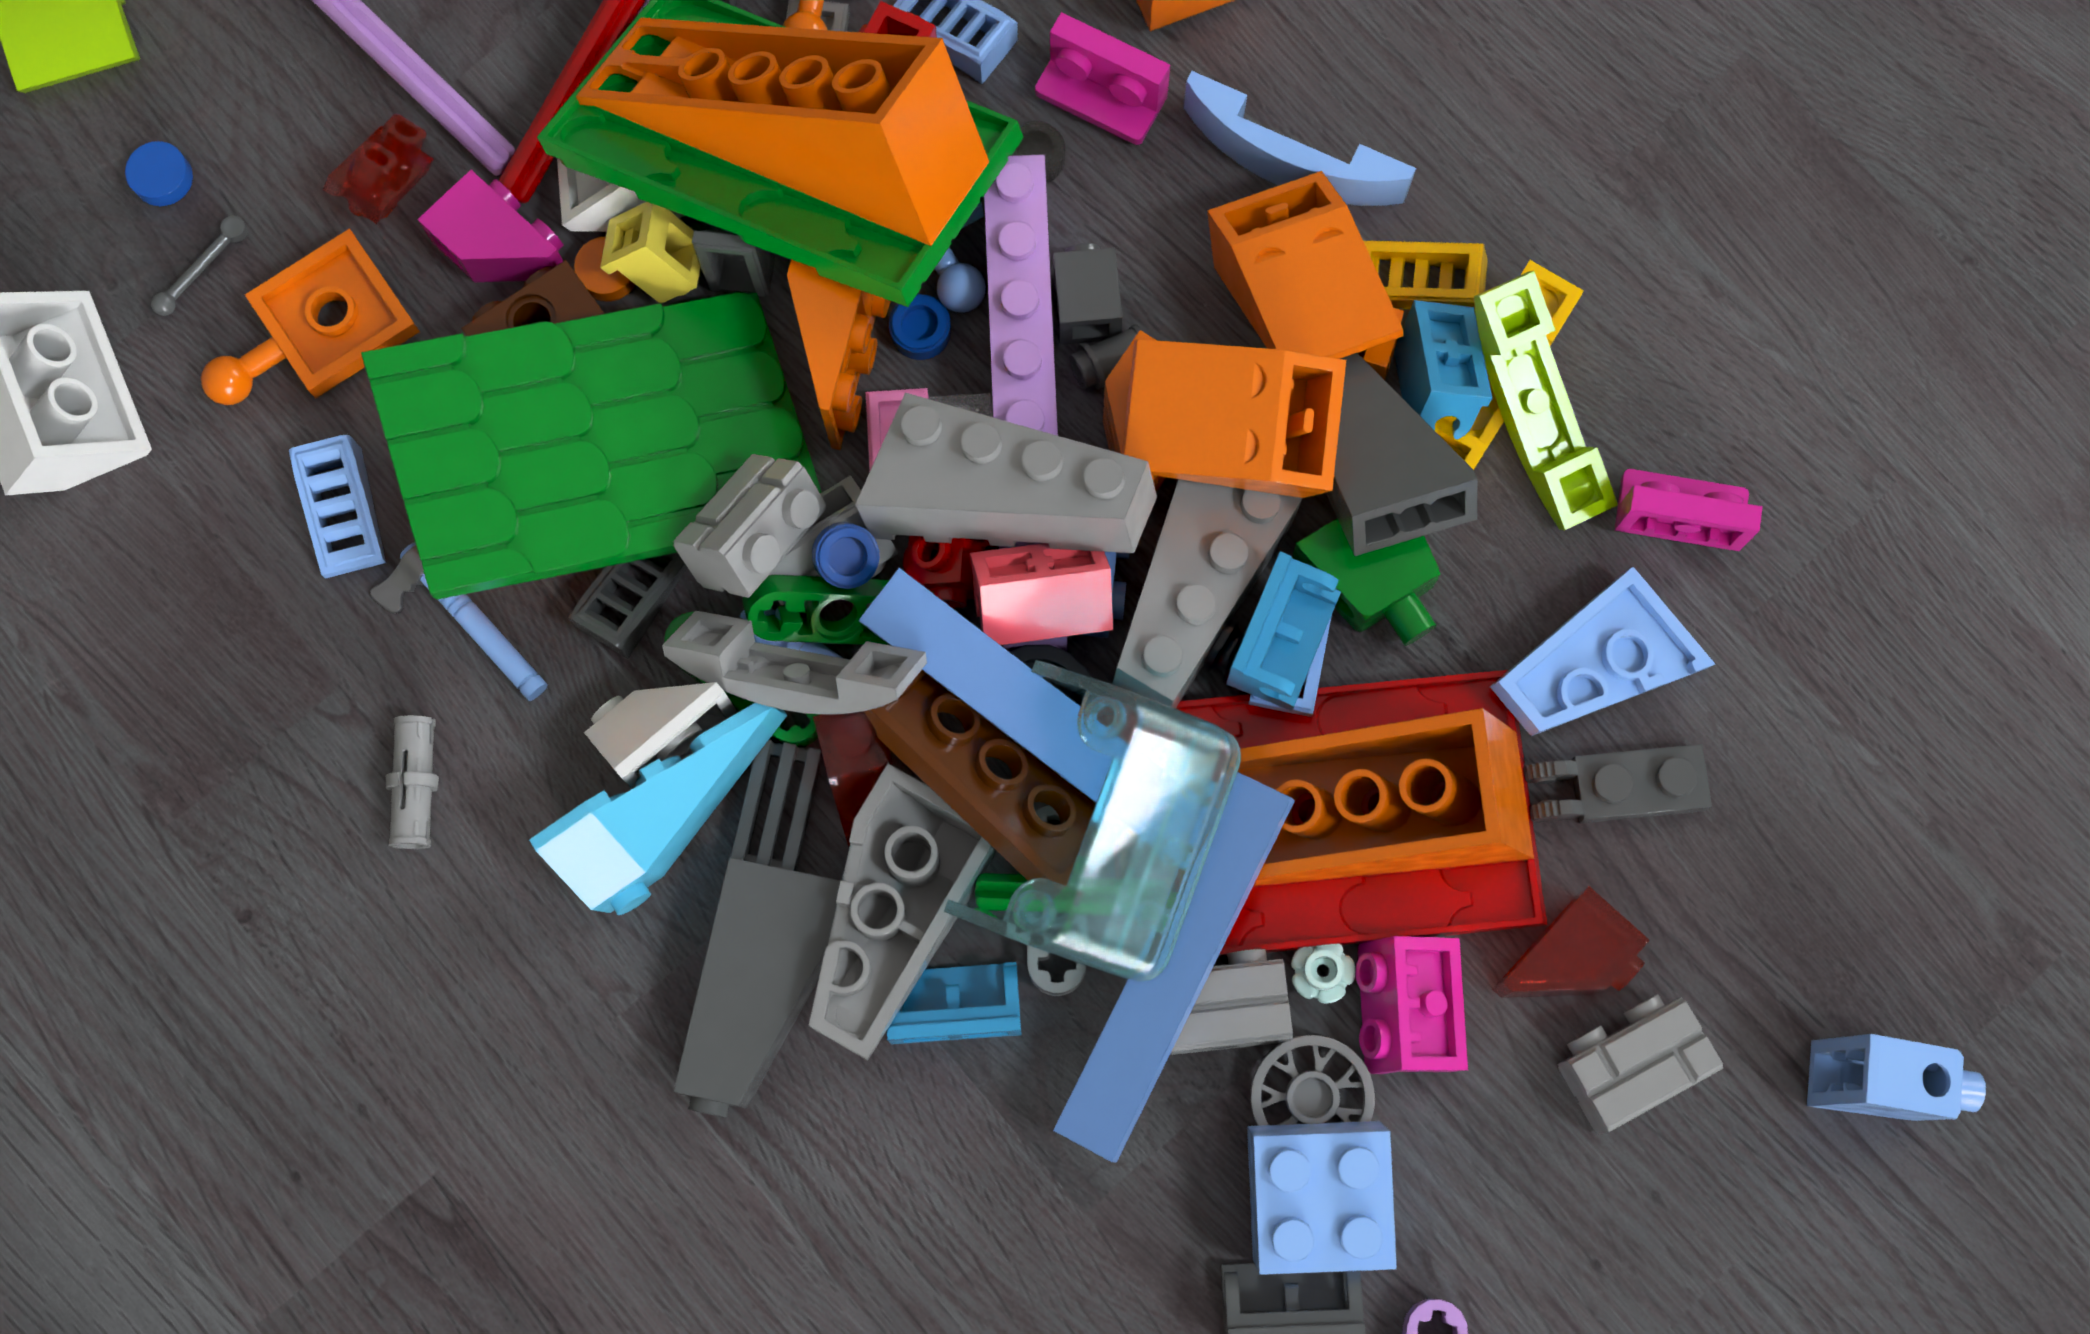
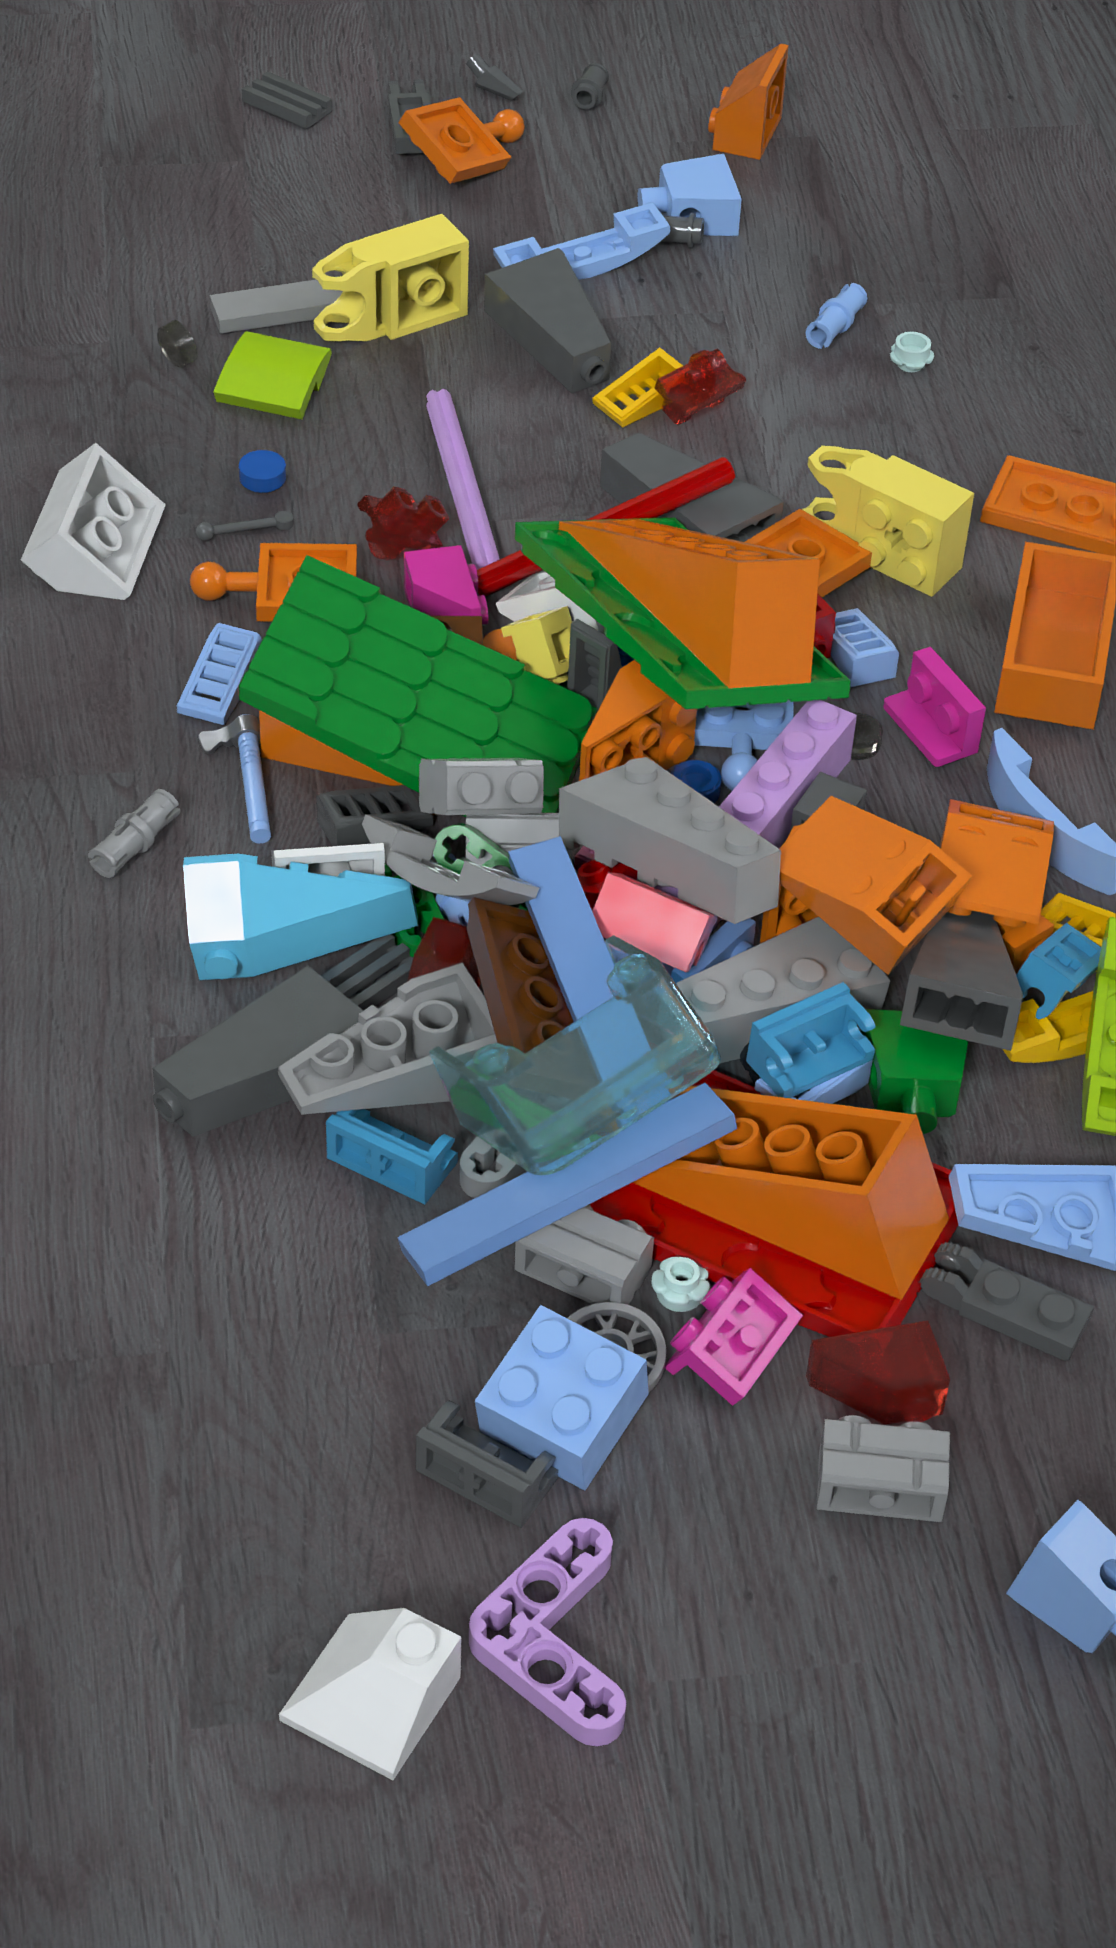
camera: 30 degrees right, 30 degrees down
(845, 555) = (530, 828): blue tile -> none

